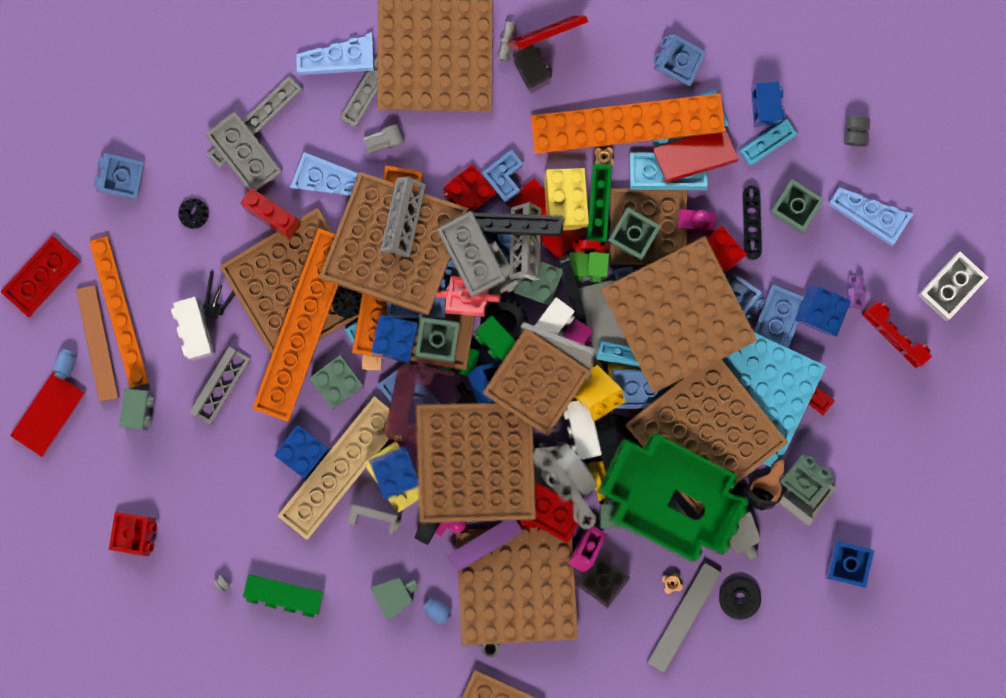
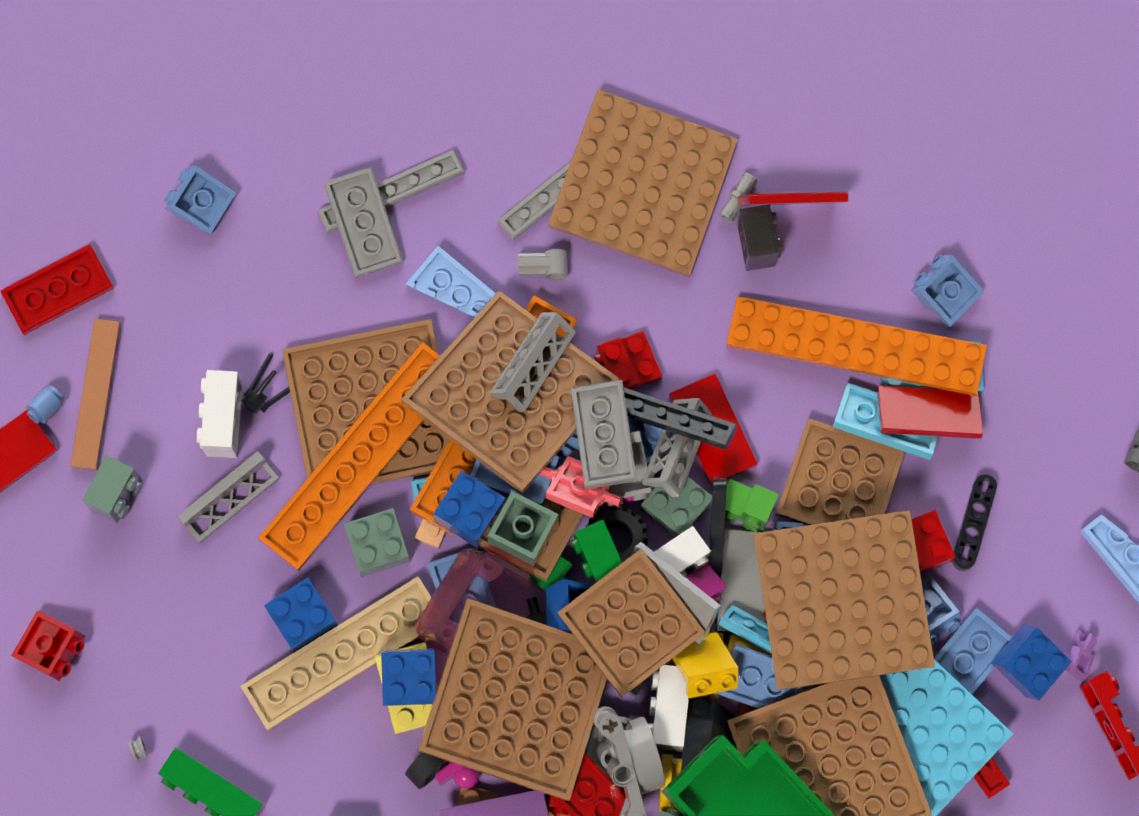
camera: 20 degrees right, 10 degrees down
(119, 312) = (137, 365): orange plate -> none
(197, 221) = (274, 286): black gear -> none
(270, 214) = (369, 305): red brick -> none
(338, 305) = (426, 458): black gear -> none
(343, 57) = (530, 150): light blue wing -> none
(356, 510) = (344, 713): light grey panel -> none
(499, 175) = (673, 354): medium blue plate -> none
(567, 196) = (750, 404): light yellow brick -> none
(586, 246) = (752, 476): red plate -> none
(599, 203) = (786, 432): green brick -> none
(606, 152) = (806, 382): light nougat plate -> none
(634, 234) = (819, 482): sand green brick -> none
(697, 220) = (905, 494): dark pink tile -> none
(767, 104) = (1041, 379): blue brick -> none
(768, 142) = (1027, 429): medium azure tile -> none
(796, 206) = (1038, 519): sand green brick -> none

